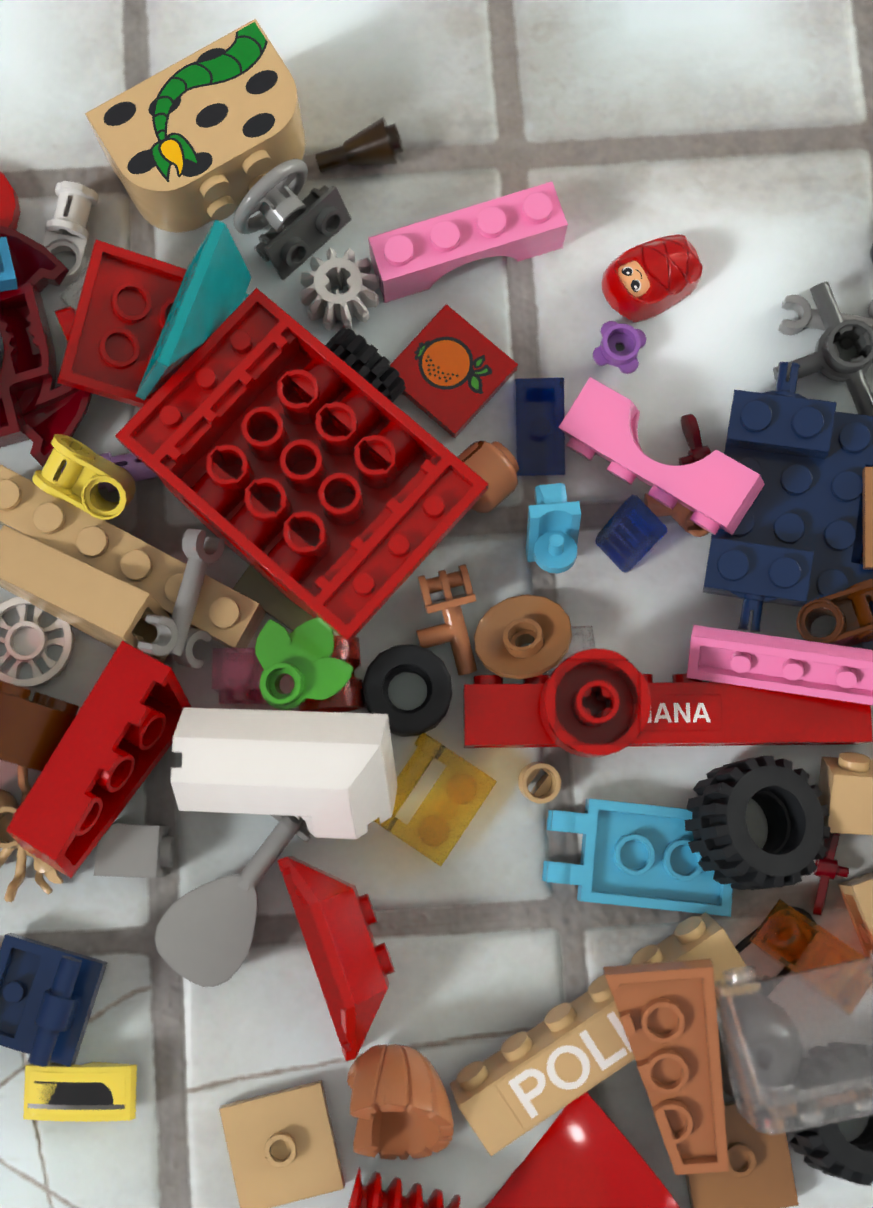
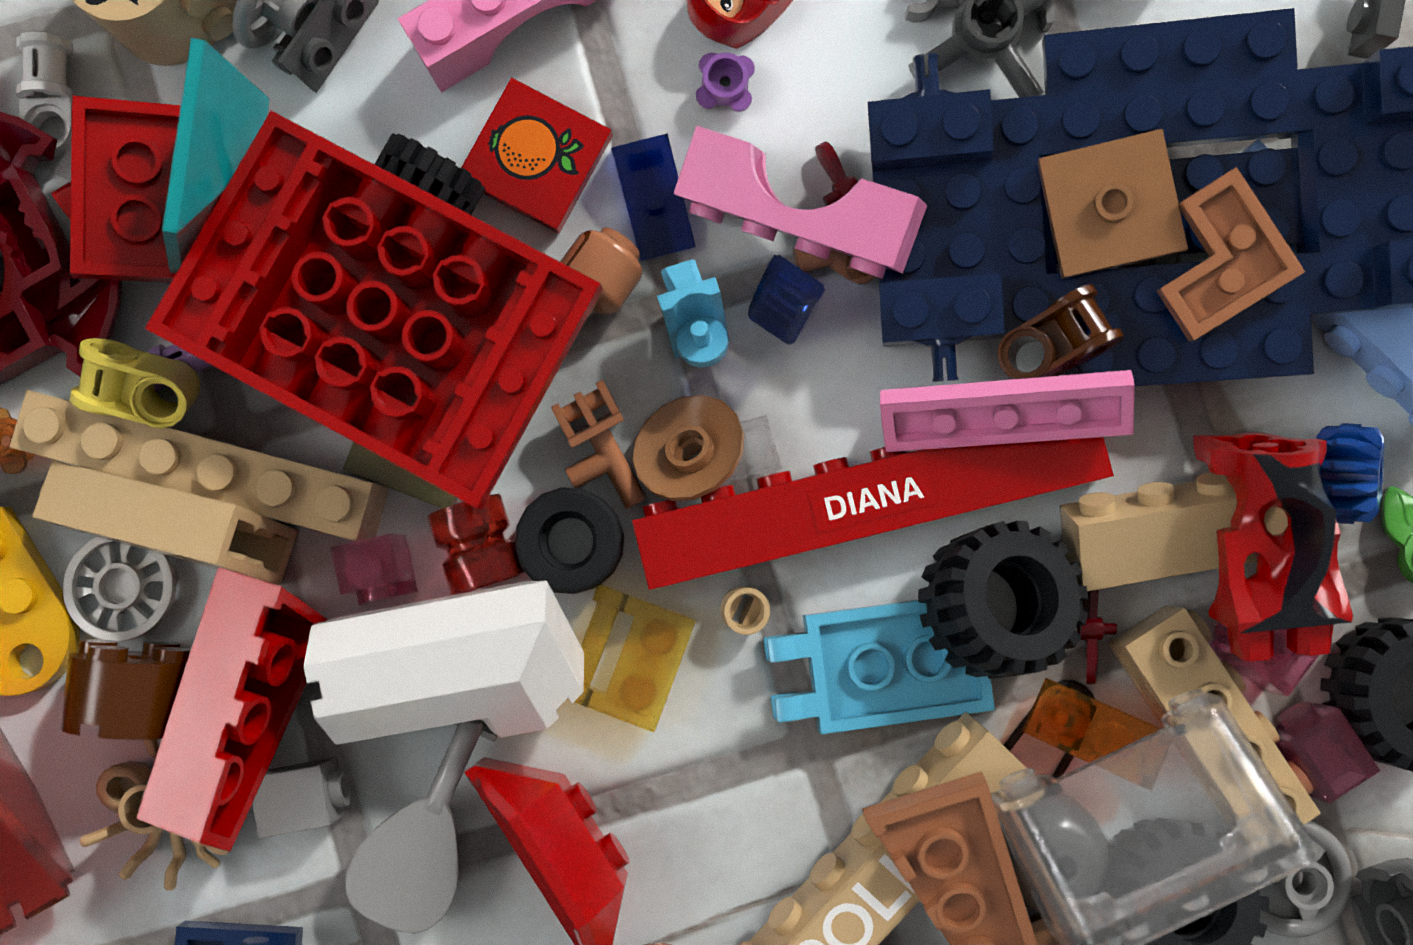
camera: 10 degrees left, 5 degrees up
(174, 633) = (283, 544): light grey bar -> none
(305, 657) = (438, 533): bright green plate -> none
(340, 273) = (375, 69): white gear -> none
(614, 682) = (803, 480): red brick -> none

